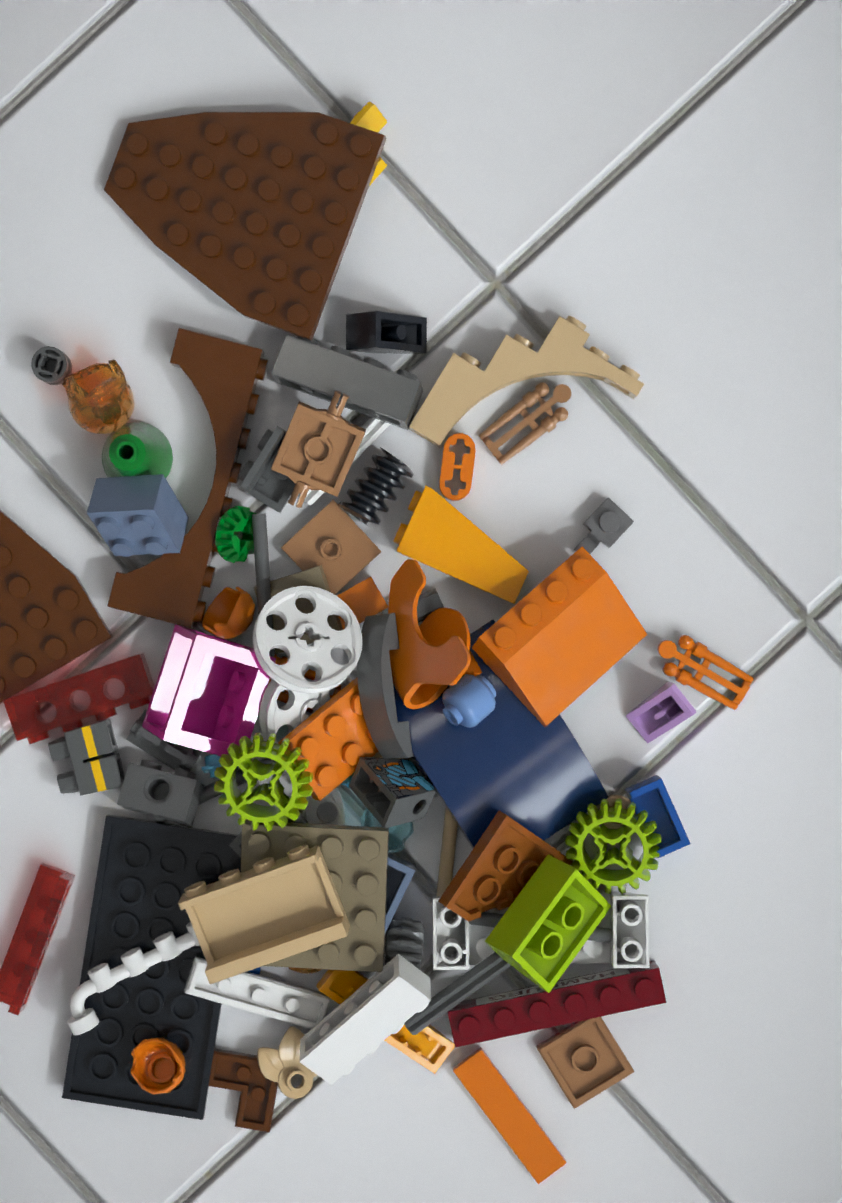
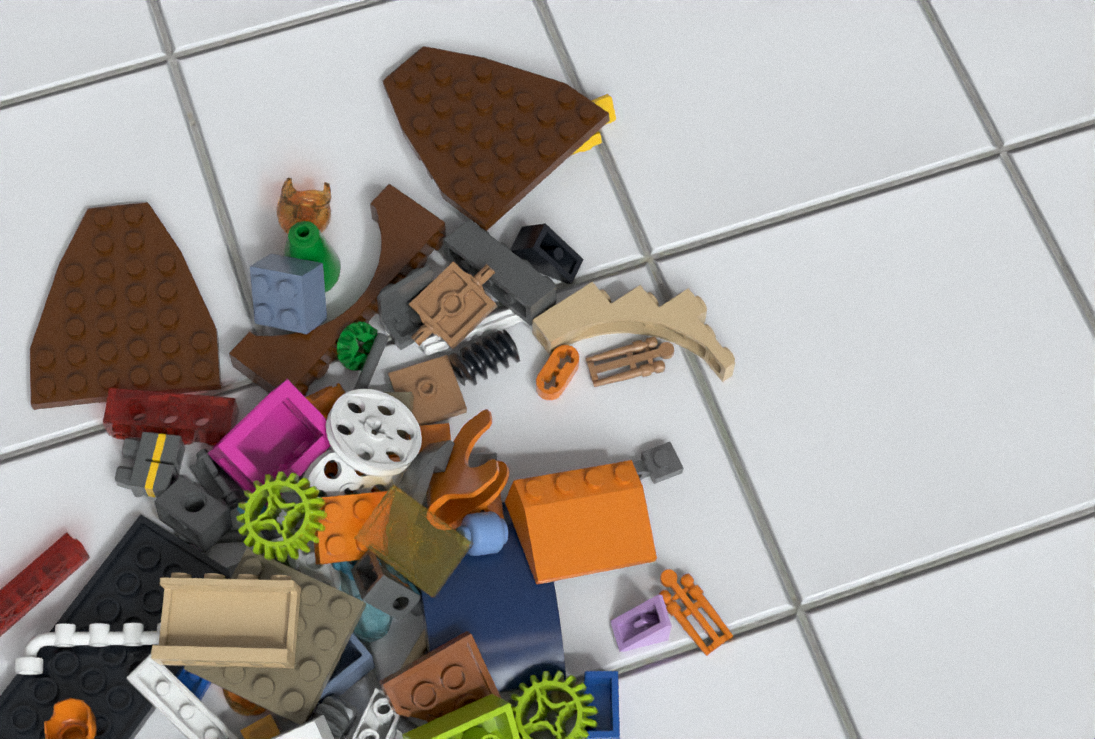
camera: 20 degrees right, 25 degrees down
(55, 370) = (276, 173): dark grey wheel -> none
(406, 744) = (413, 541): none -> clear yellow tile
(457, 547) = (528, 425): light orange slope -> none

